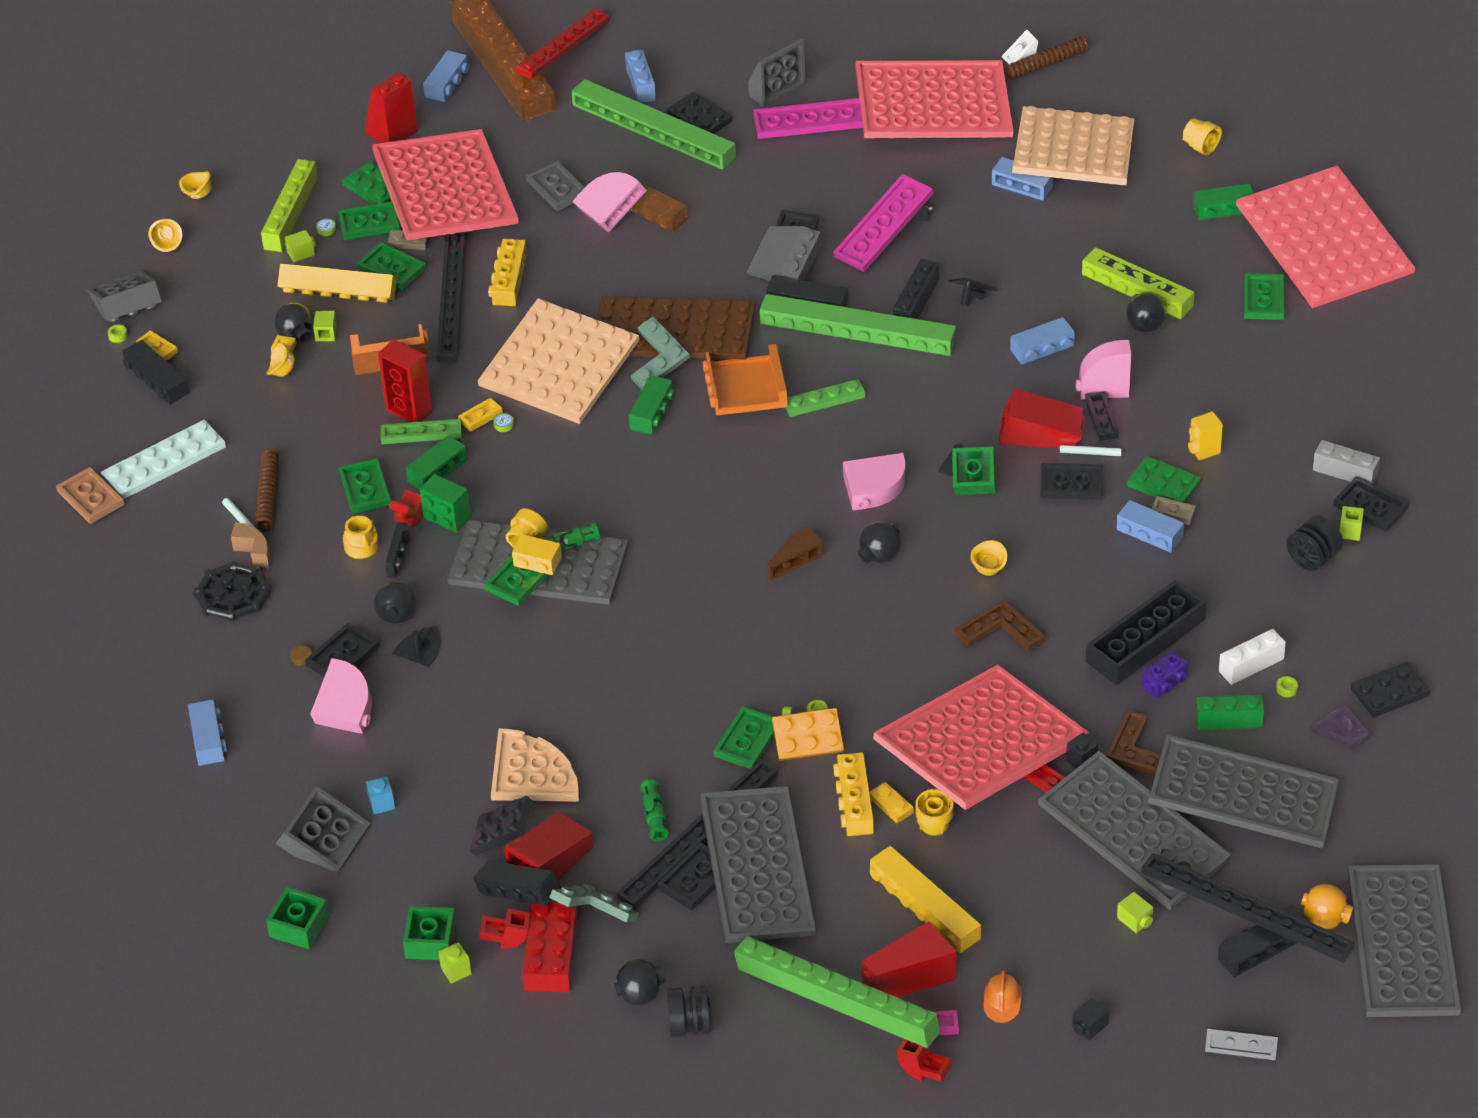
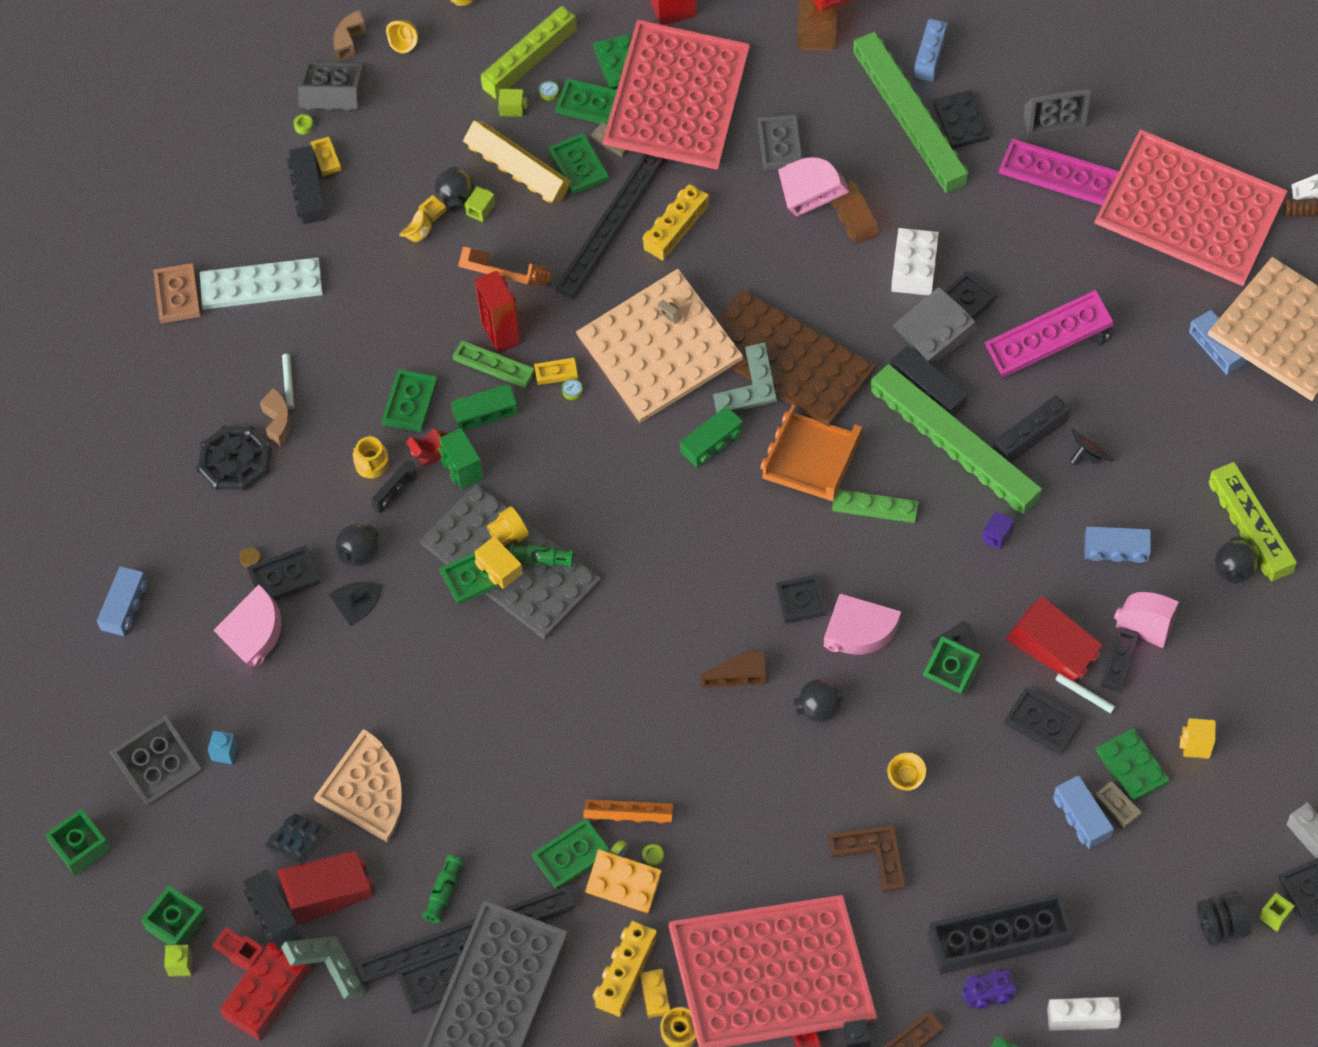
camera: 30 degrees right, 15 degrees up
(113, 256) = (349, 27): none -> medium nougat brick
(266, 489) = (324, 363): reddish brown piece -> none
(554, 326) = (669, 311): none -> dark tan plate
(734, 220) = (914, 261): none -> white brick
(767, 689) = (628, 811): none -> orange plate
(810, 483) = (801, 599): none -> black plate
(939, 370) = (997, 530): none -> dark purple brick

